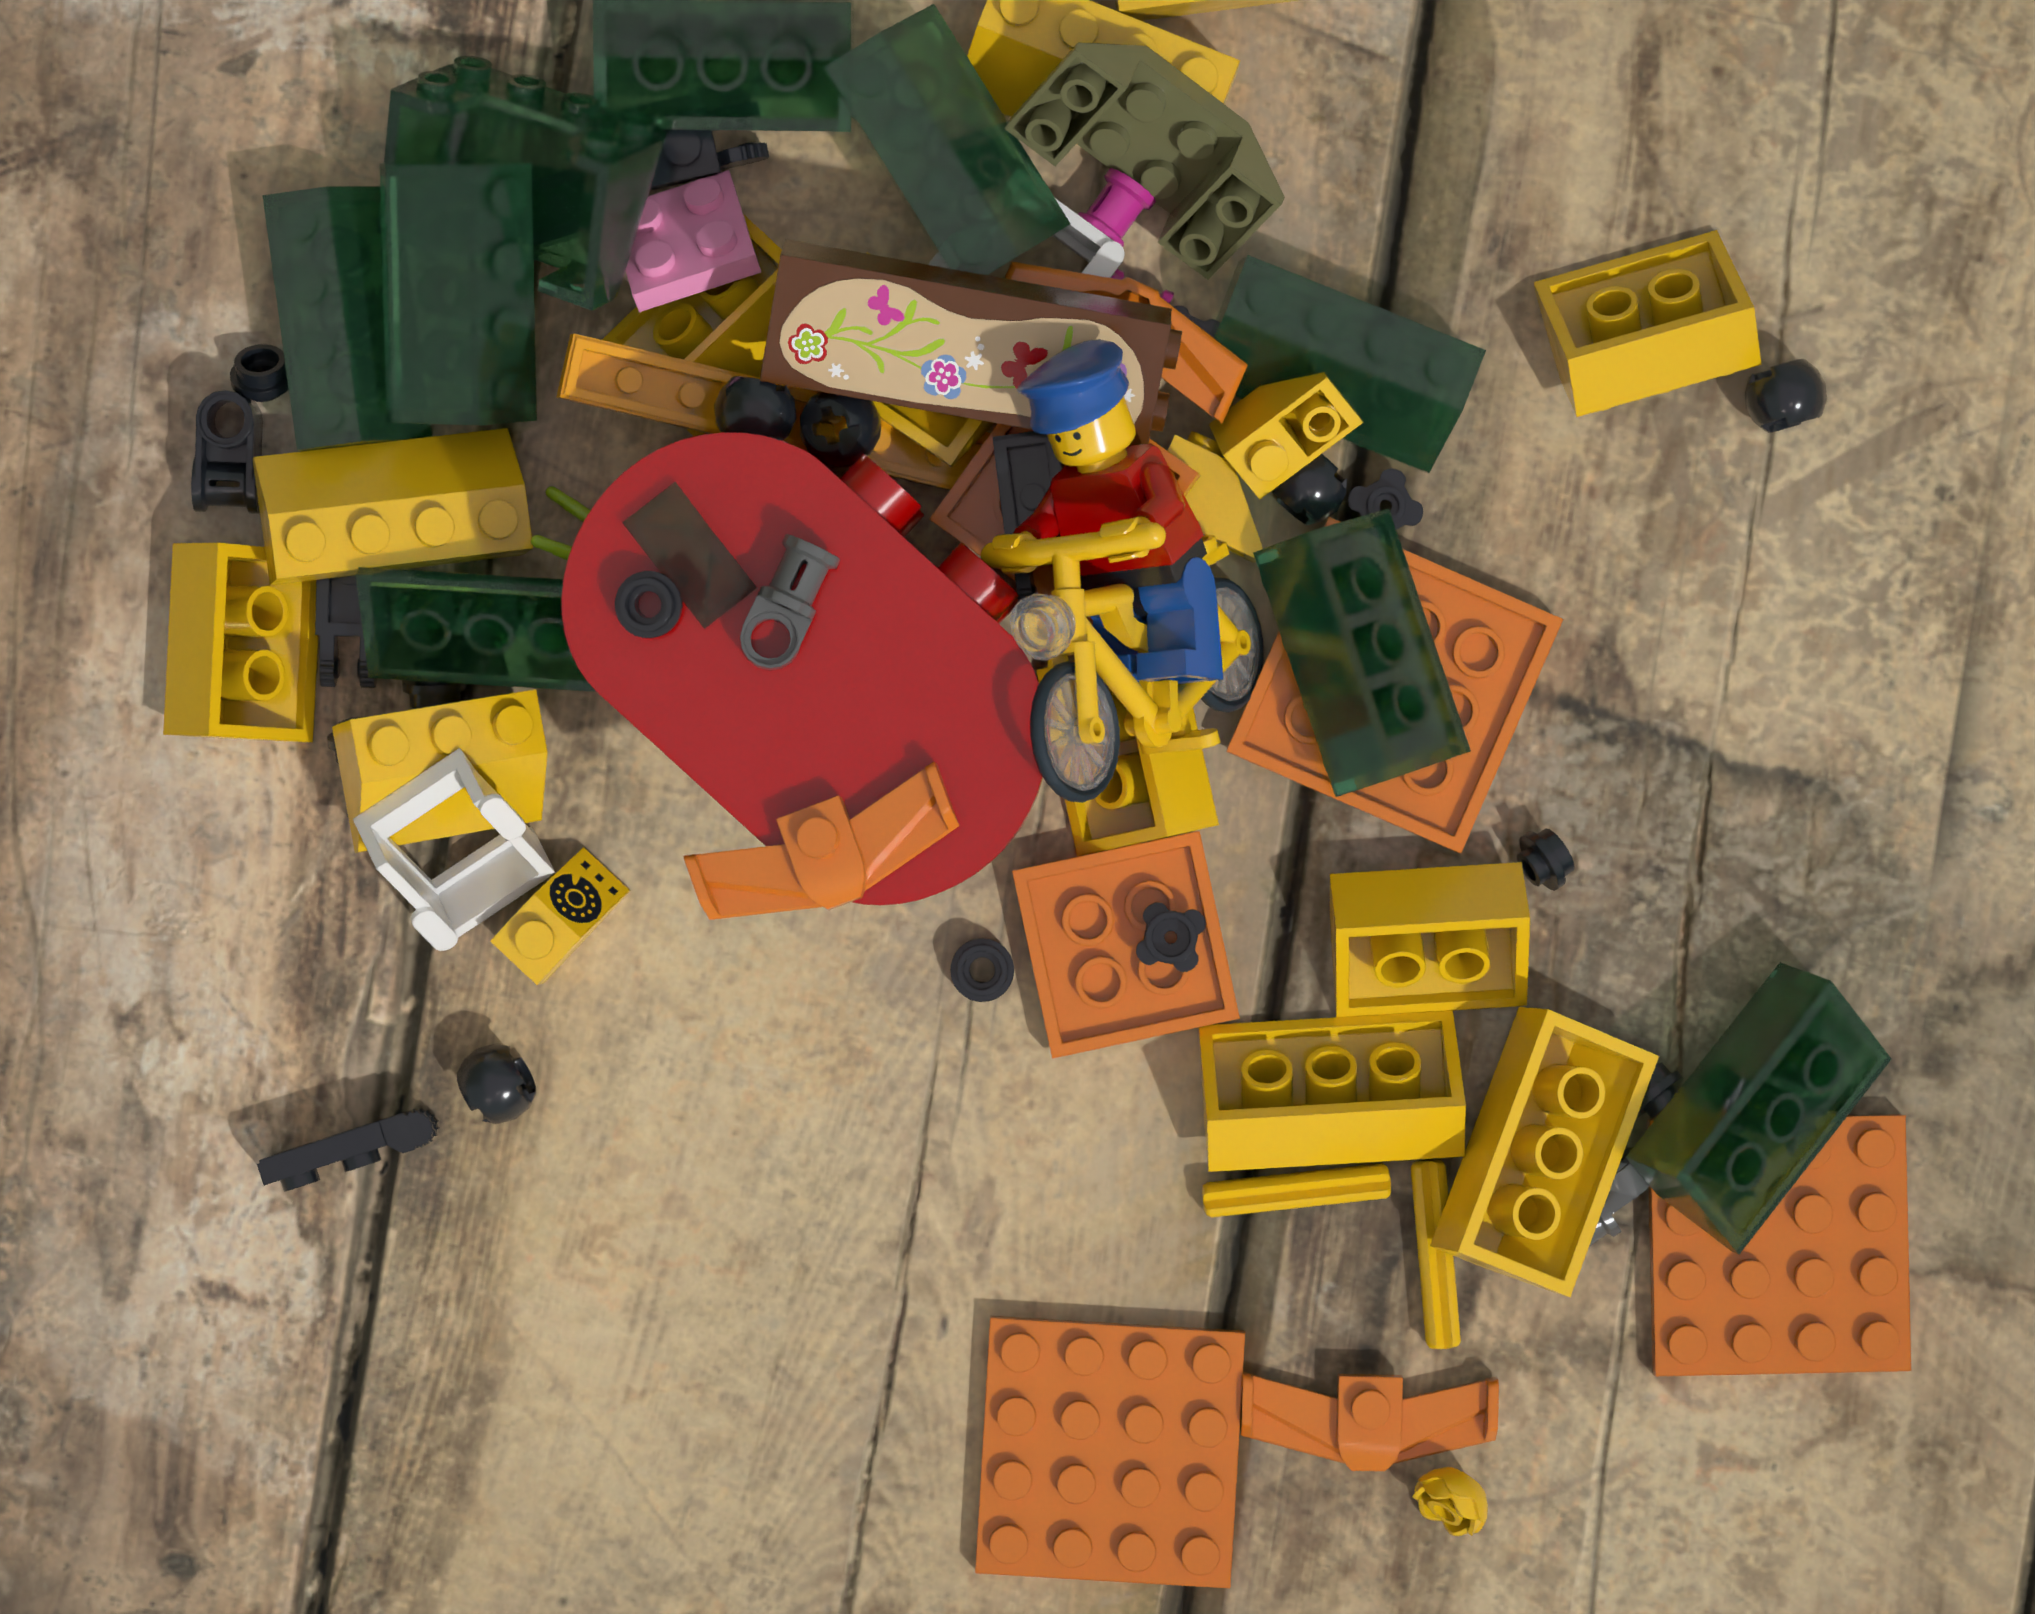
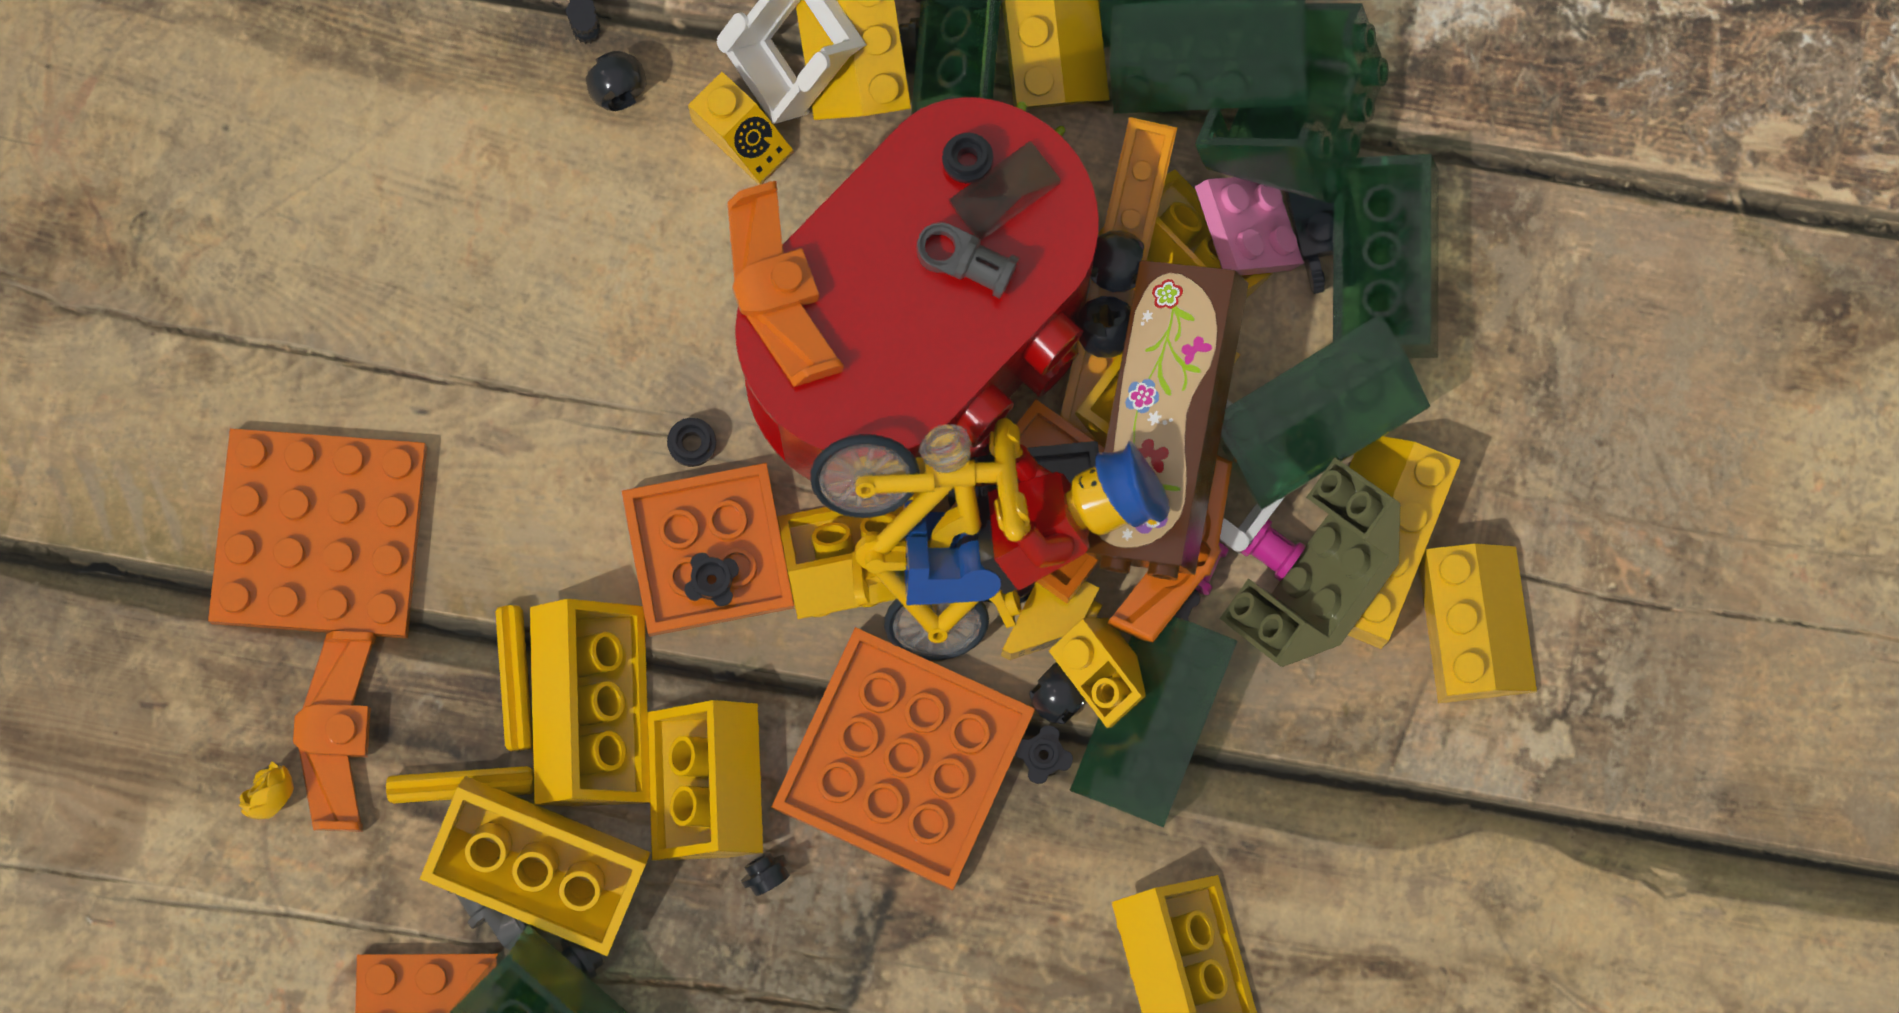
camera: 90 degrees right, 10 degrees down
(1361, 651) = (929, 728): clear green slope -> none

